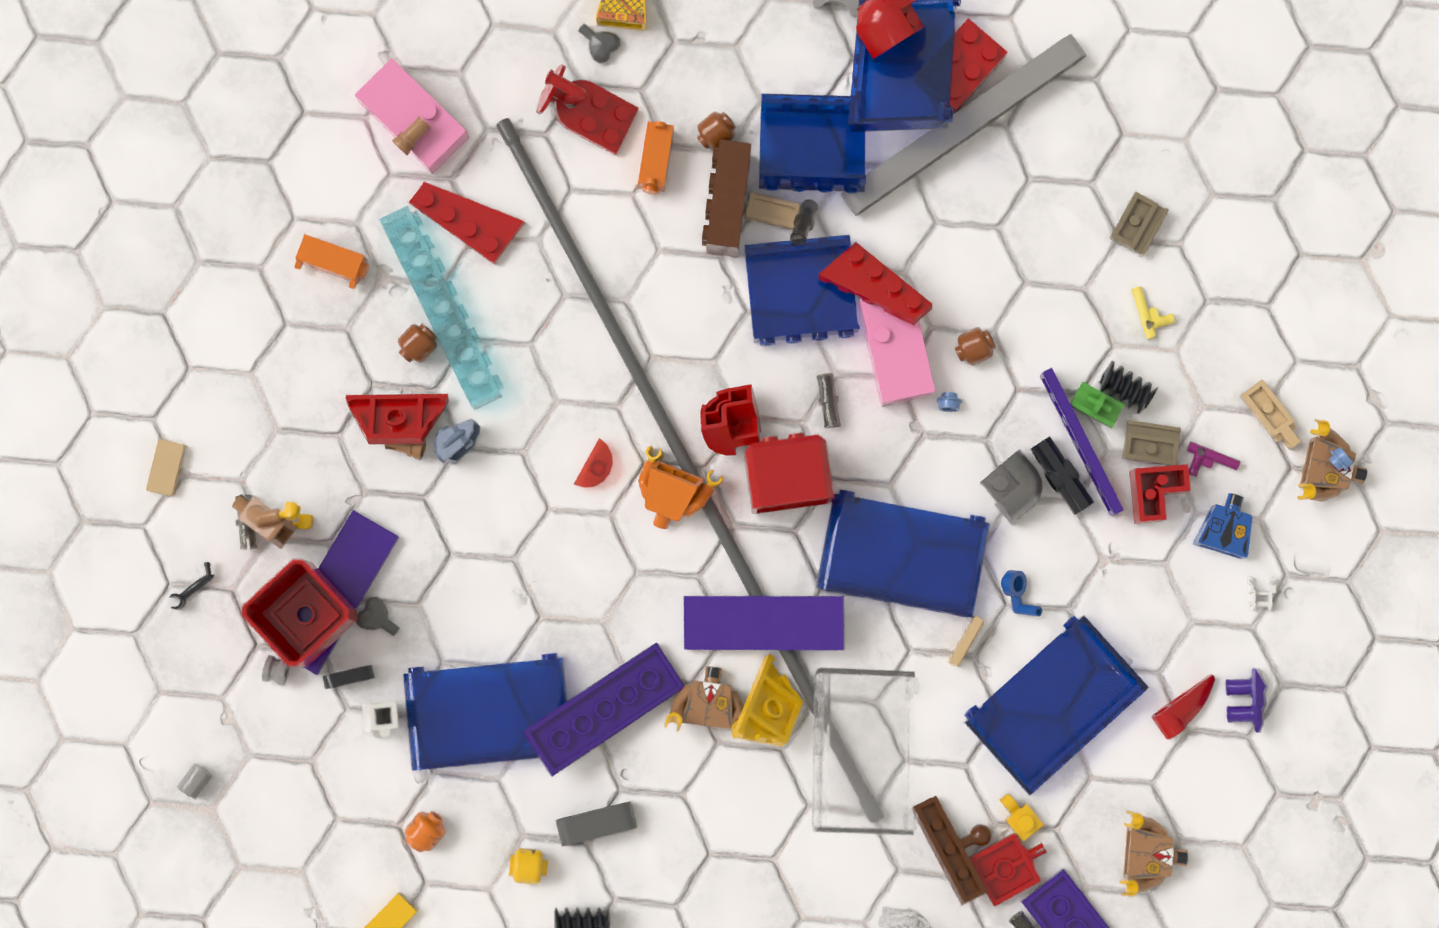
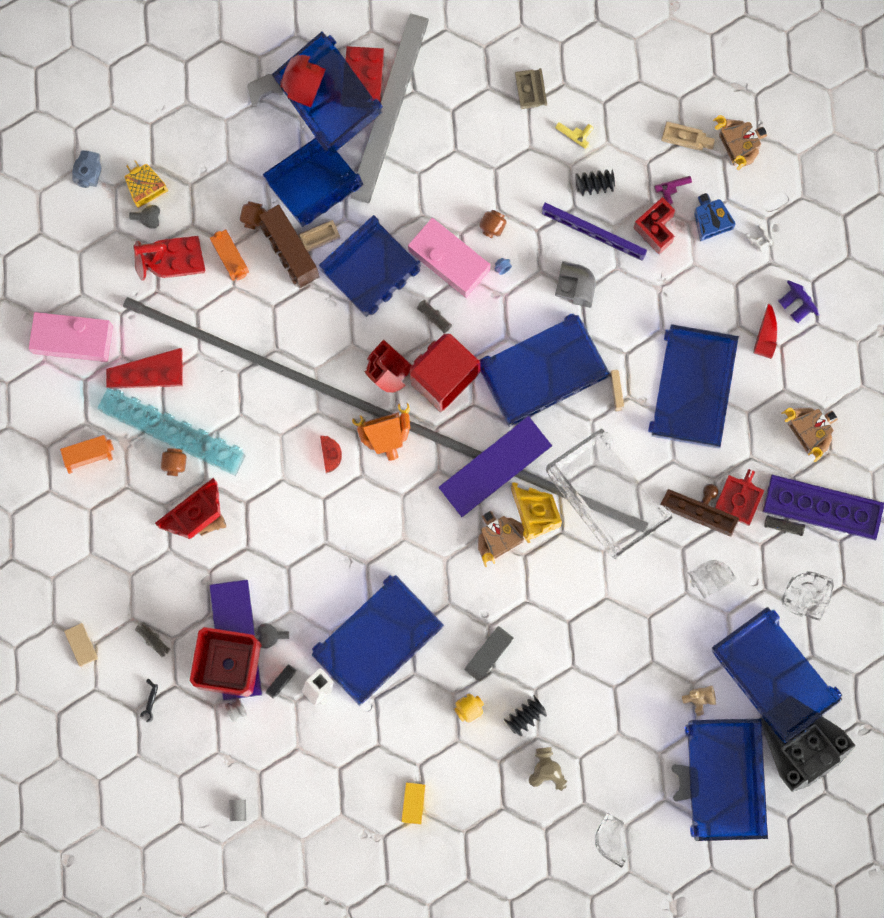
camera: 30 degrees left, 5 degrees down
(272, 523) = (167, 625): medium nougat torso -> none
(406, 140) = (79, 350): medium nougat pin -> none
(425, 831) = (394, 734): orange head -> none
(456, 441) = (239, 499): sand blue hand -> none
(603, 709) = (442, 585): dark purple tile -> none
(804, 222) = (342, 227): clear smoke pin -> none
(875, 283) = (409, 229): red wing -> none
(1014, 585) = (620, 339): blue plate -> none
(1022, 819) = (726, 465): yellow plate -> none
(1062, 475) = (597, 258): black piece -> none
(1097, 405) = (586, 204): bright green hips -> none
(1151, 443) = (632, 202): dark tan plate -> none
(1340, 459) = (744, 130): medium blue plate -> none

